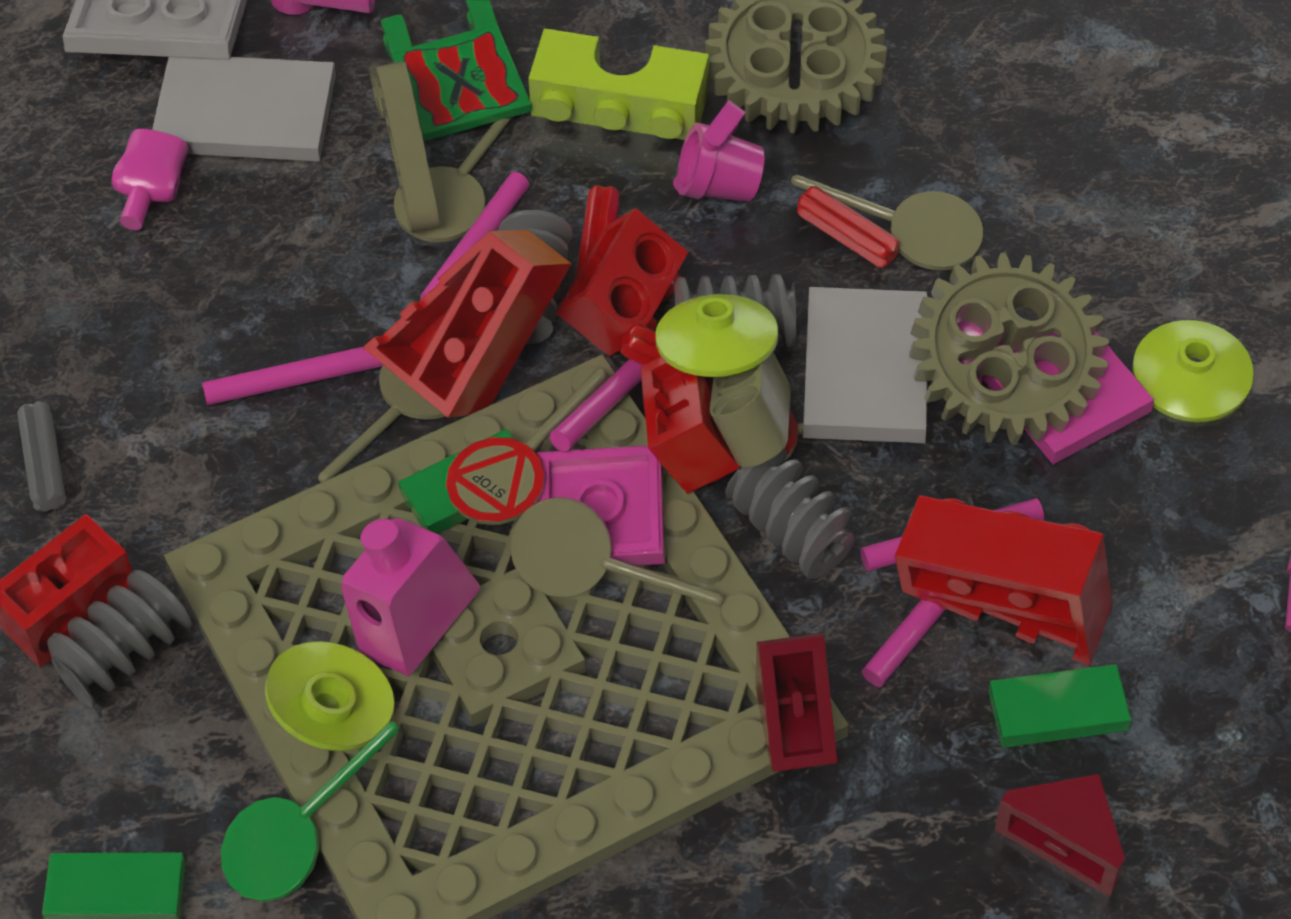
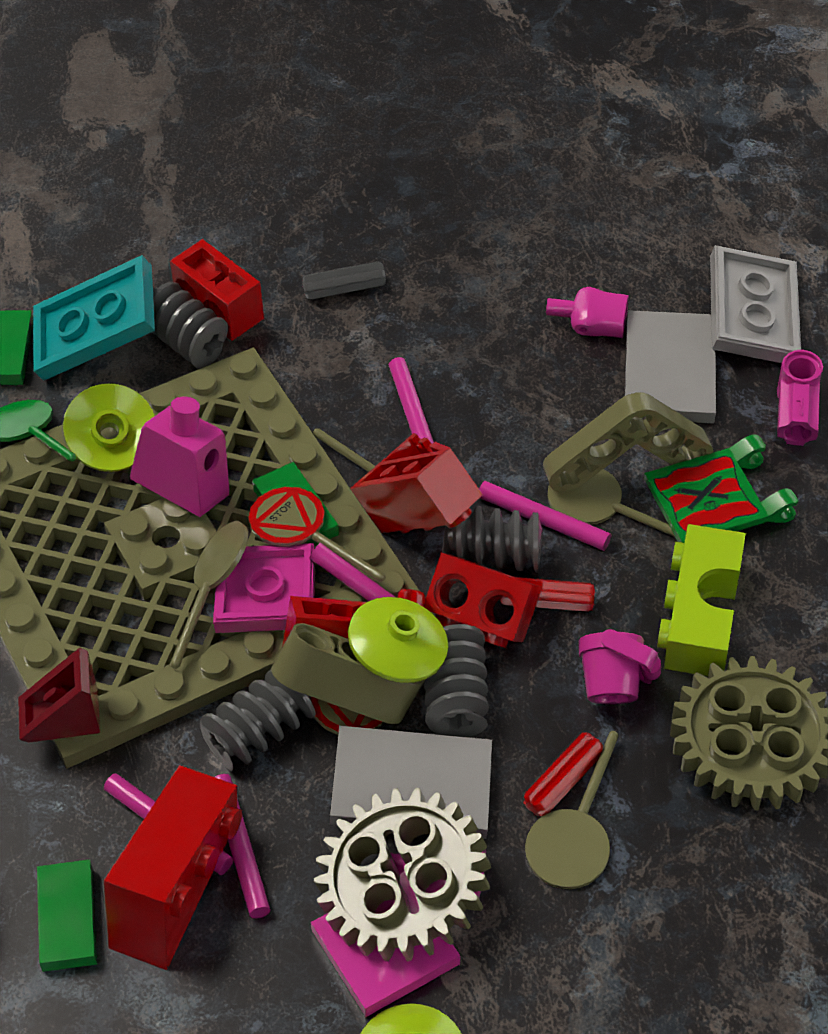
camera: 90 degrees right, 5 degrees down
(106, 741) = (93, 318): none -> teal plate

